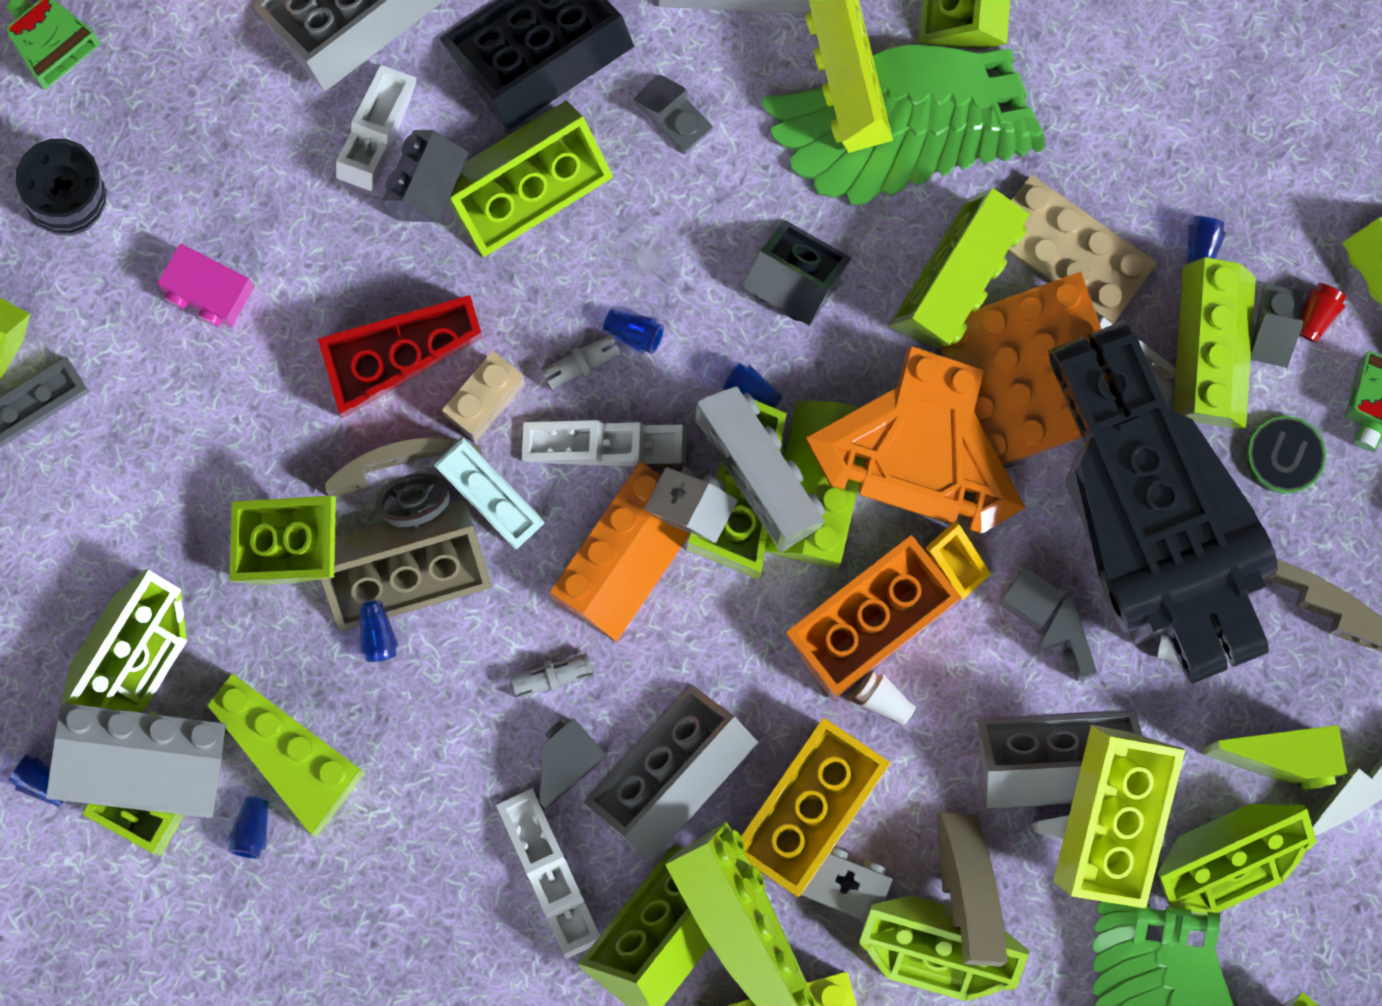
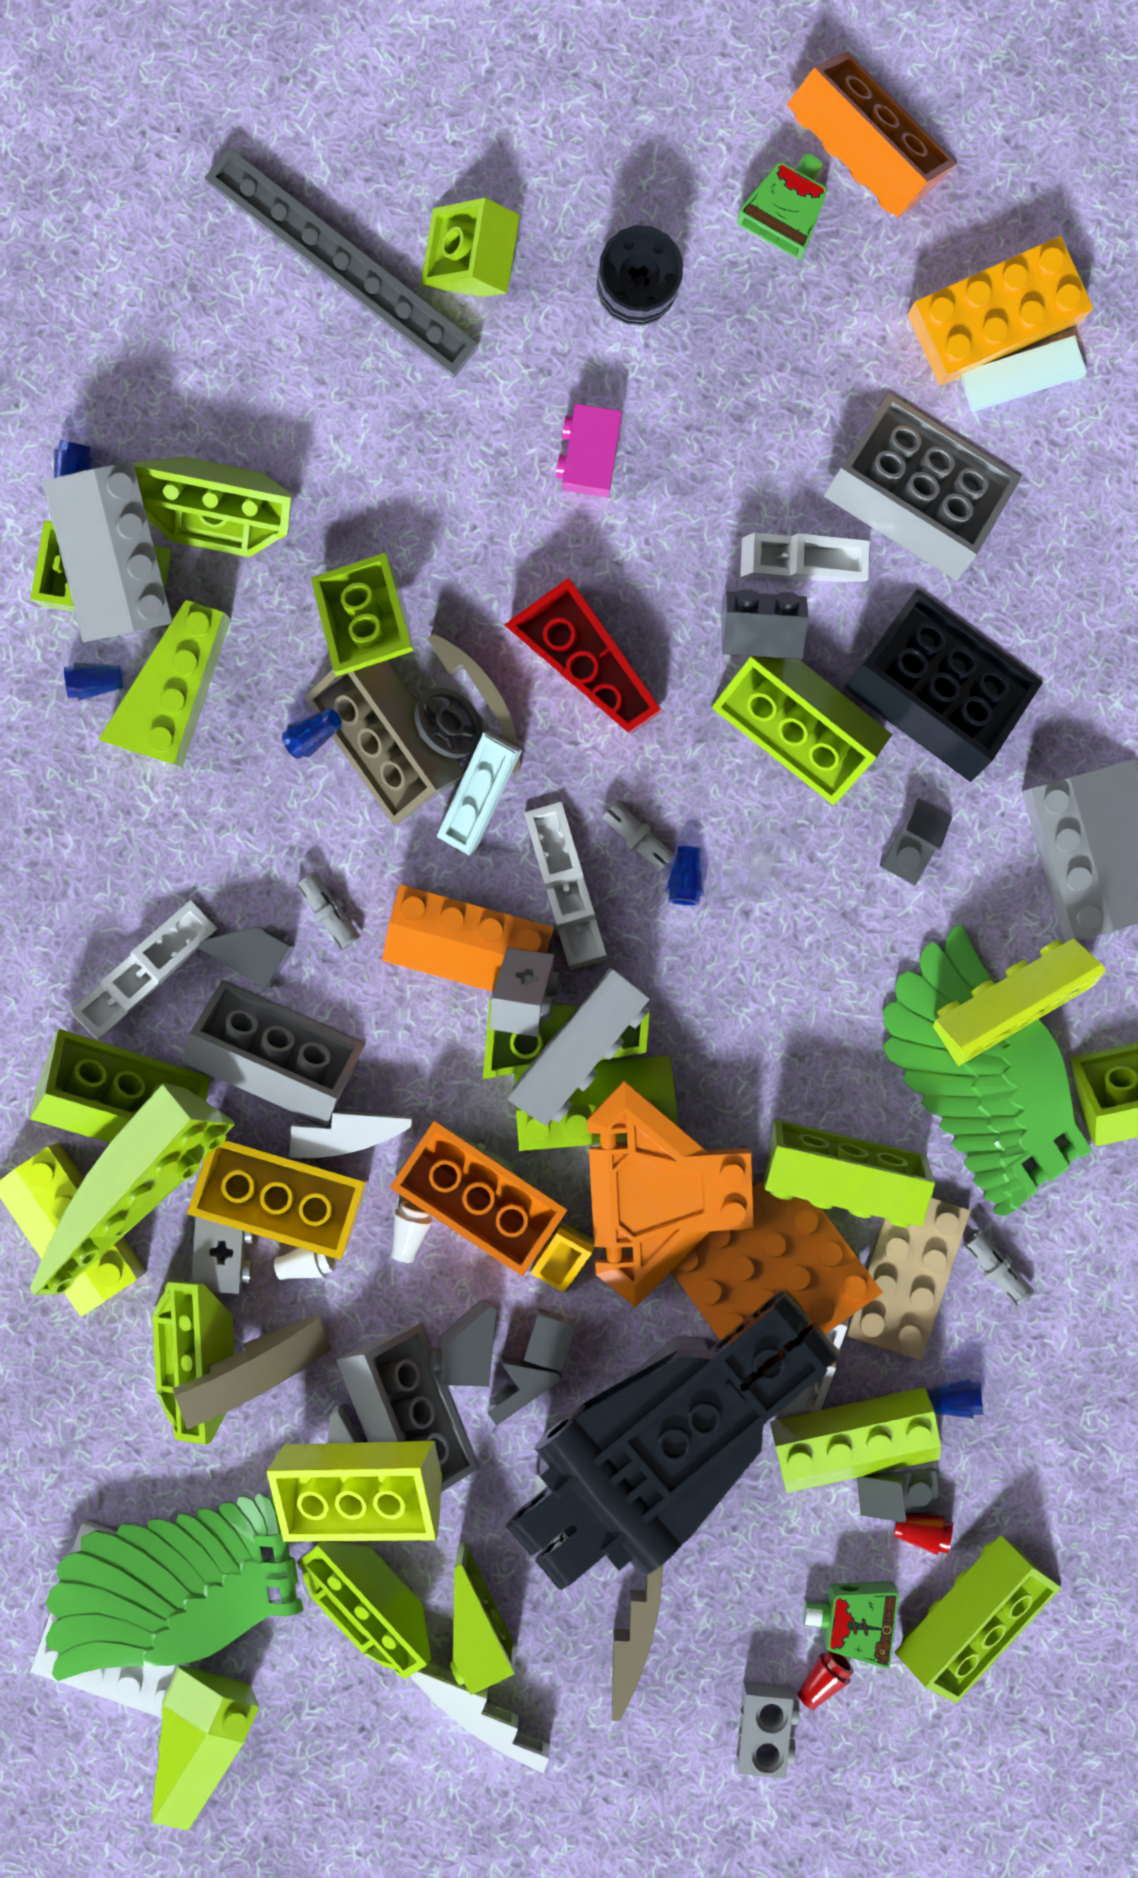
camera: 80 degrees right, 10 degrees up
(483, 396) = (570, 755): tan brick -> none
(752, 382) = (666, 1007): clear blue cone -> none
(772, 726) = (346, 1134): none -> white slope
(796, 272) = (795, 1015): black slope -> none
(883, 809) = (303, 1264): none -> white cone
(1014, 678) = (466, 1348): none -> dark grey slope
(1092, 167) = (998, 1267): none -> light grey pin
(1286, 455) = (772, 1539): black tile -> none

